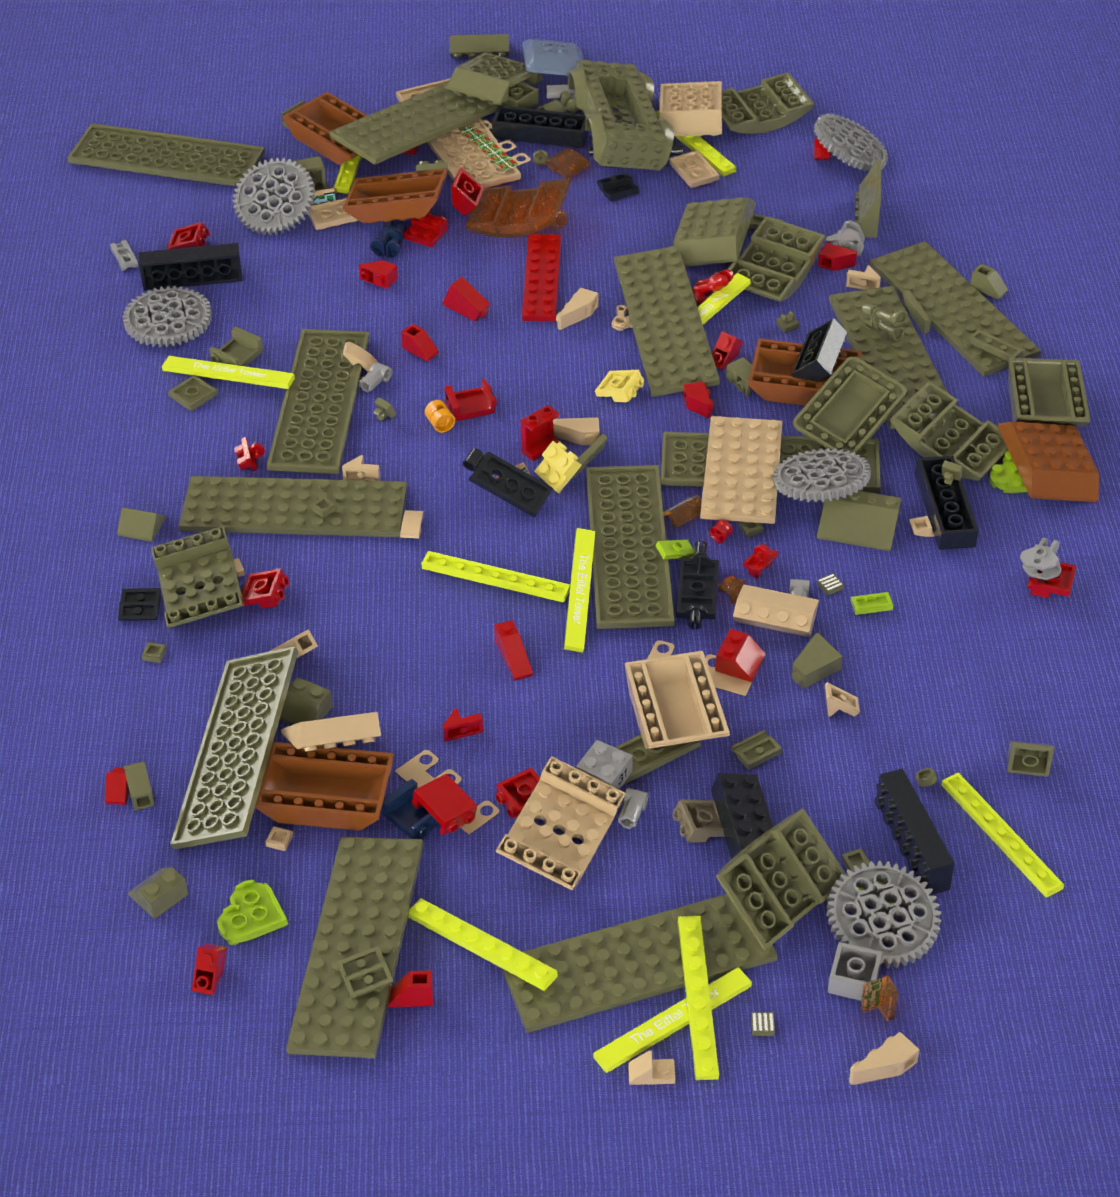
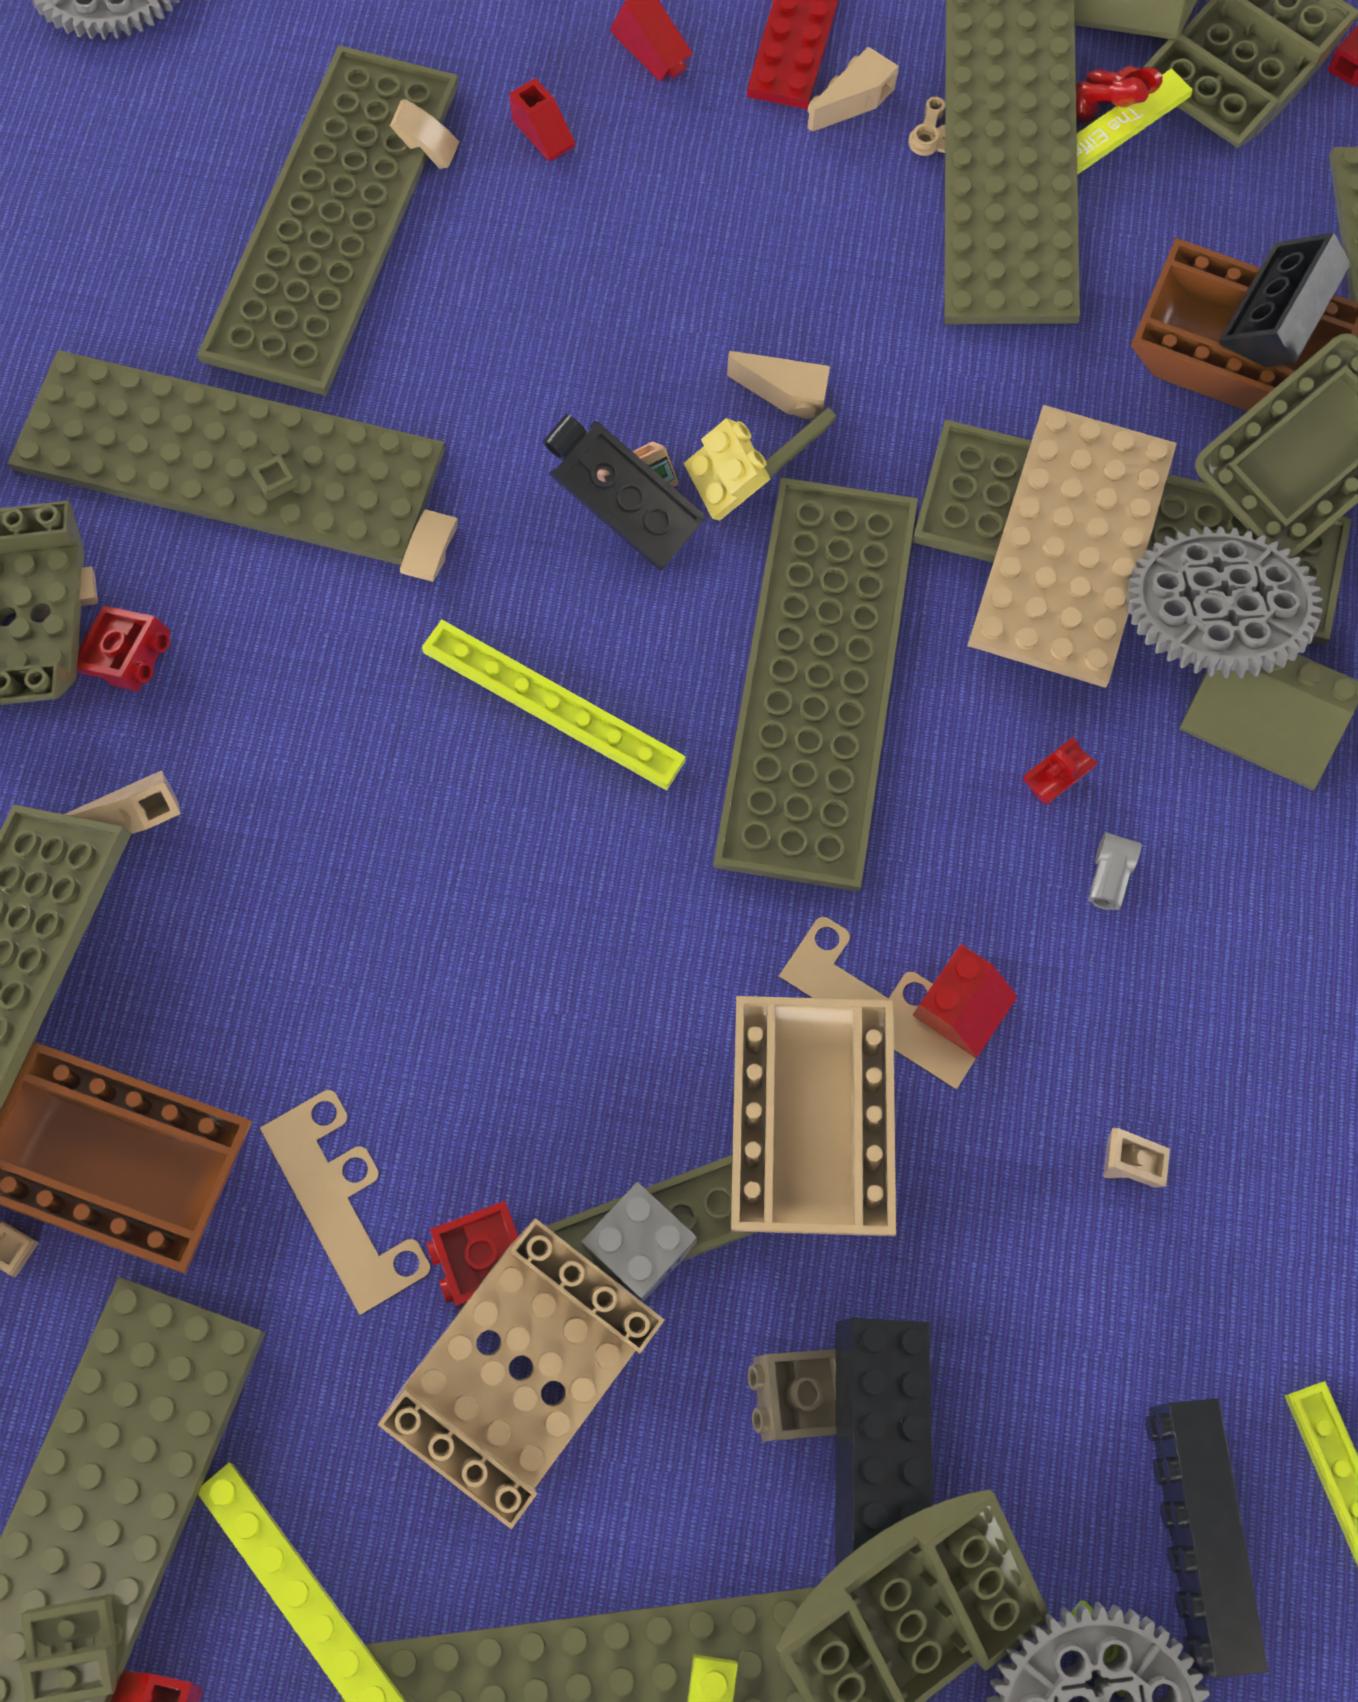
camera: 10 degrees right, 25 degrees up
(192, 393) = (111, 154): olive tile -> none
(228, 372) = (183, 121): neon yellow tile -> none
(239, 350) = (212, 74): olive panel -> none
(248, 454) = (175, 321): red hips -> none
(305, 702) = (128, 944): olive slope -> none
(333, 731) = (146, 1043): tan slope -> none
(359, 471) = (359, 400): tan slope -> none
(377, 373) = (451, 176): light grey piece -> none
(383, 409) = (440, 264): olive tile -> none
(400, 811) = (267, 1245): dark blue panel -> none
(439, 416) = (538, 300): light orange wheel -> none
(445, 803) = (323, 1254): red panel -> none
(458, 727) = (393, 1058): red slope -> none
(470, 402) = (605, 274): red panel -> none
(512, 650) = (542, 894): red slope -> none
(538, 432) = (708, 384): red panel -> none
(579, 590) = (699, 775): neon yellow tile -> none
(620, 385) = (890, 290): light yellow plate -> none
(633, 804) = (683, 1320): light grey piece -> none
(675, 549) = (902, 712): lime plate -> none
(684, 511) = (940, 616): clear orange panel -> none
(697, 587) = (924, 811): black plate -> none
(698, 398) = (1028, 351): red slope -> none
(721, 531) = (999, 683): red wheel -> none
(726, 350) = (1108, 245): red slope -> none
(732, 586) = (993, 827): clear orange bracket -> none
(738, 374) = (1121, 308): olive slope -> none
(750, 528) = (1058, 685): olive tile -> none
(756, 749) = (946, 1237): olive plate -> none
(776, 610) = (1061, 908): tan slope -> none
(787, 322) = (1239, 197): olive tile -> none
(816, 662) = (1109, 1046): olive slope -> none
(830, 584) = (1179, 852): olive tile -> none
(854, 858) = (1074, 1575): olive tile -> none
(871, 603) = (1249, 919): lime plate -> none
(926, 777) = (1259, 1381): olive tile -> none

